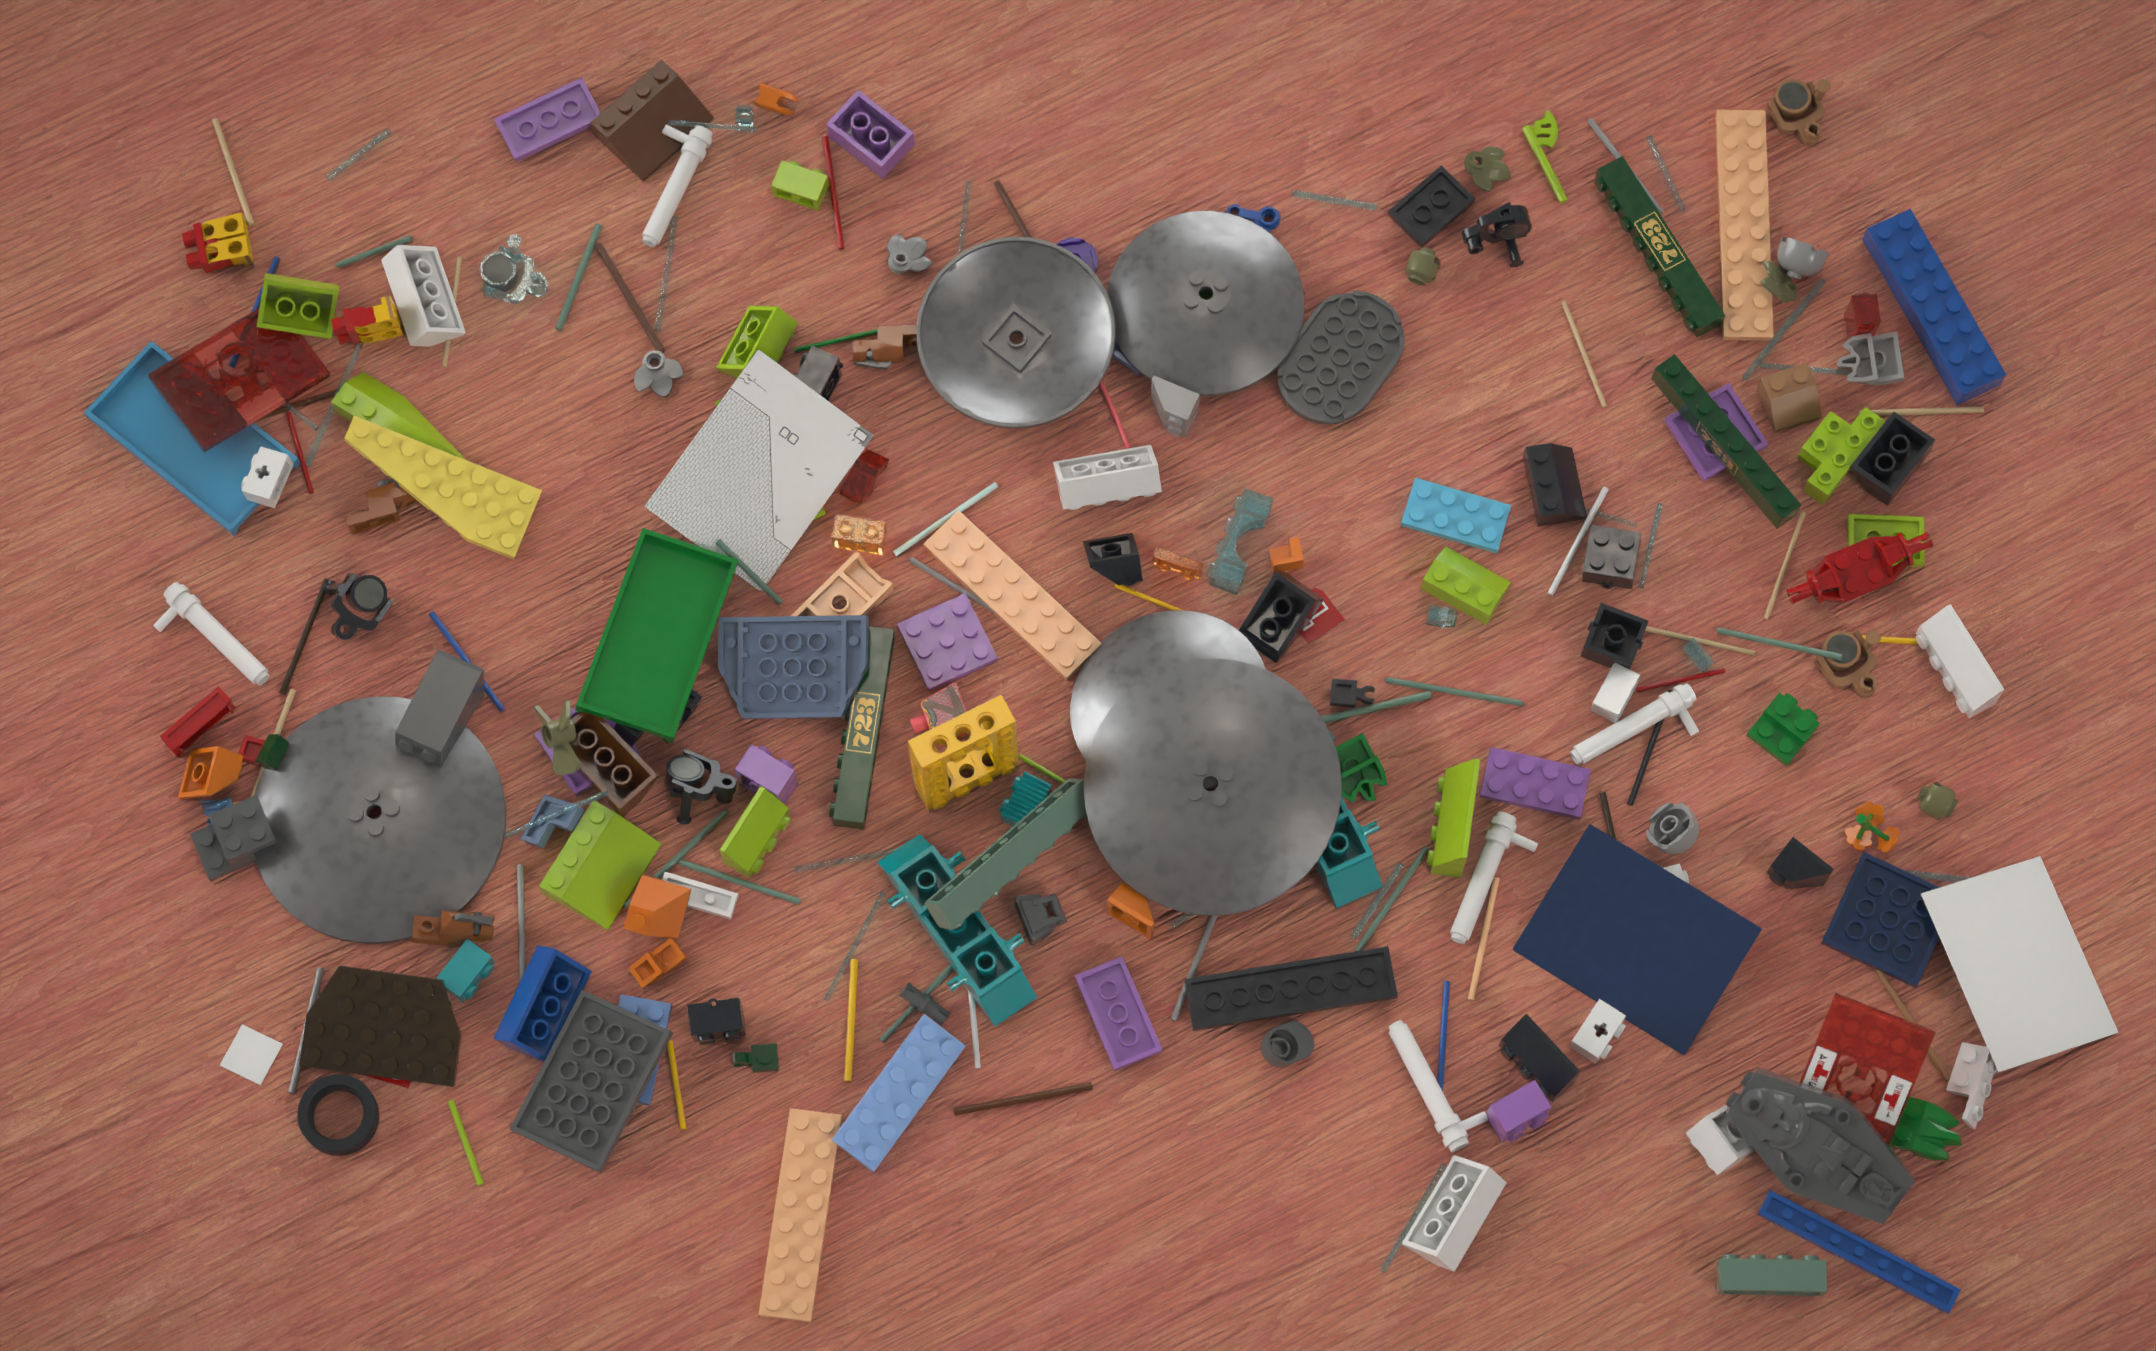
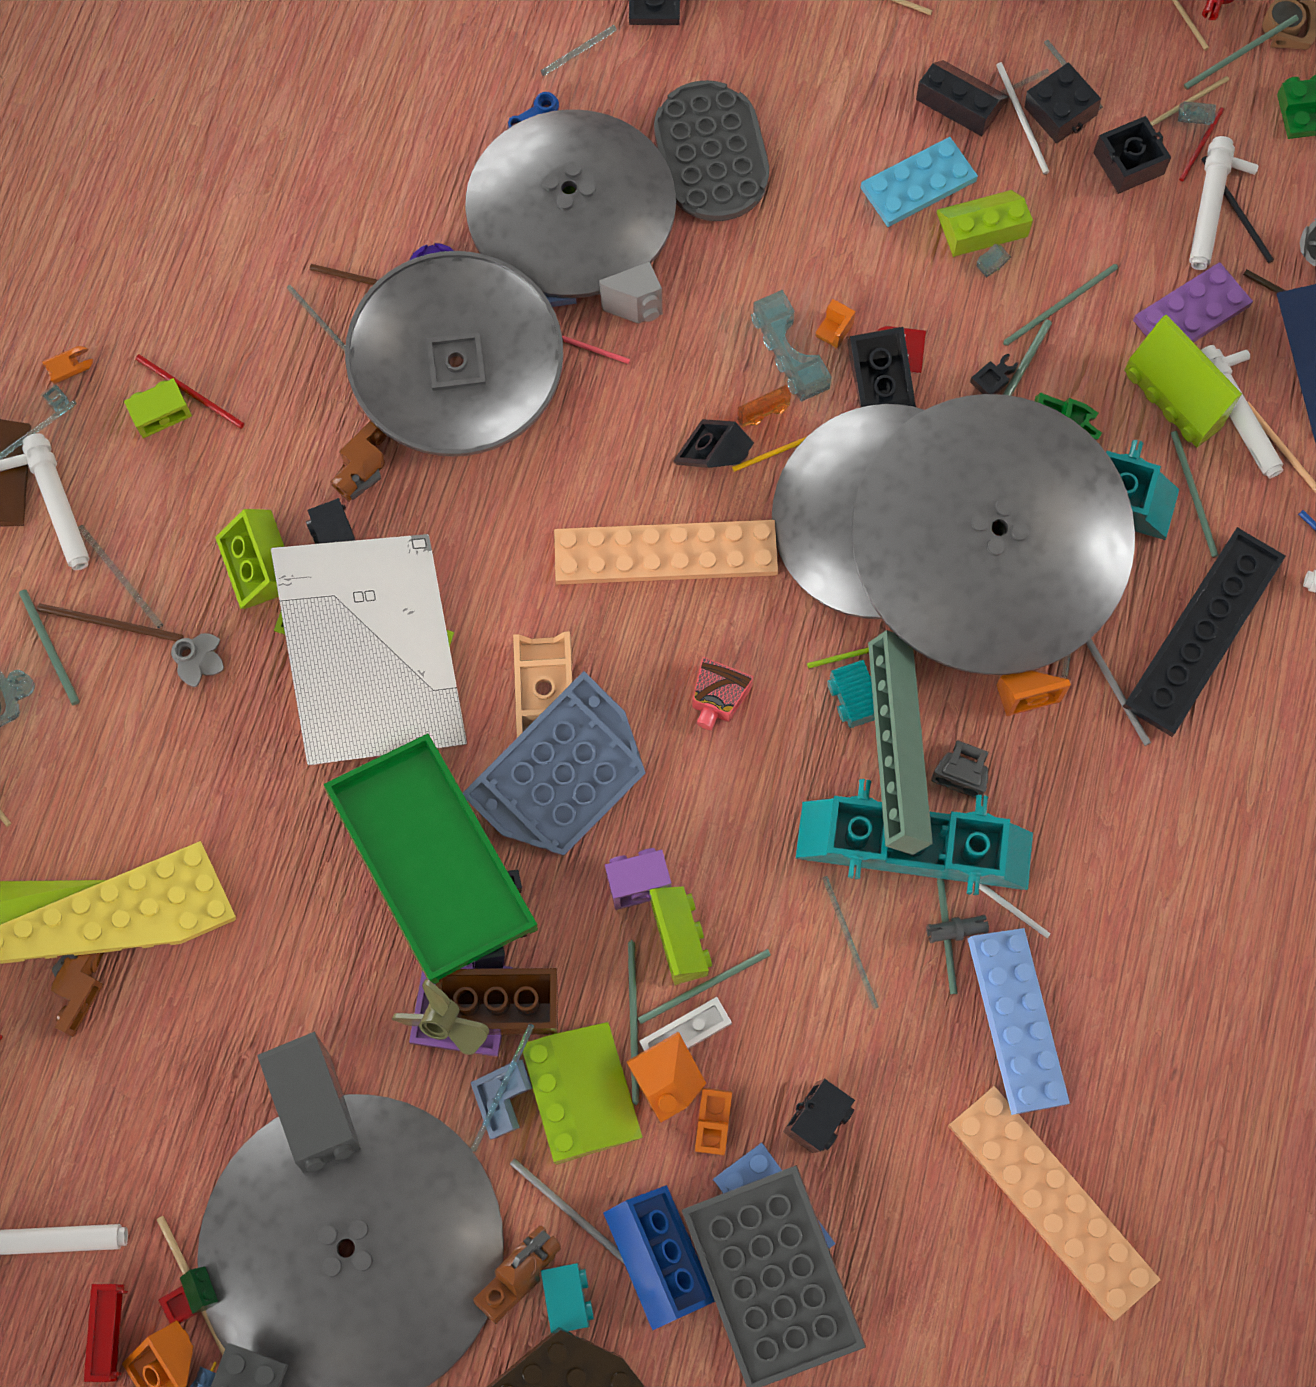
camera: 45 degrees left, 0 degrees up
(309, 624) = (122, 1163): dark brown axle -> none
(363, 594) = (138, 1076): black piece -> none
(463, 656) = (279, 1040): blue axle -> none
(676, 1085) = (843, 1208): yellow axle -> none
(685, 780) = (573, 949): black piece -> none
(749, 572) = (444, 735): sand green axle -> none
(762, 1058) = (880, 1109): dark green plate -> none
(836, 340) = (315, 496): green axle -> none
(845, 860) = (768, 880): clear light blue axle -> none
(851, 1020) = (914, 1003): yellow axle -> none
(859, 534) = (498, 621): clear yellow brick -> none
(862, 735) = (679, 776): brick -> none
(863, 475) = (453, 575): clear red slope -> none
(870, 134) = (173, 318): medium lavender brick -> none
(909, 252) = (301, 381): light grey plate -> none
(936, 525) = (550, 546): light aqua axle -> none
(947, 642) = (656, 636): medium lavender plate -> none
(950, 583) = (605, 591): light grey axle -> none
(991, 736) = (788, 693): yellow brick -> none
(1022, 1098) = (1111, 921): reddish brown axle -> none
(1107, 477) = (640, 395): white slope -> none
(1118, 1013) = (1106, 781): medium lavender plate -> none
(1287, 1044) = (1252, 675): dark grey cap -> none
(1377, 900) = (1185, 505): clear light blue axle -> none
(1422, 266) = (697, 33): olive head -> none
(1615, 692) = (1175, 192): white piece -> none

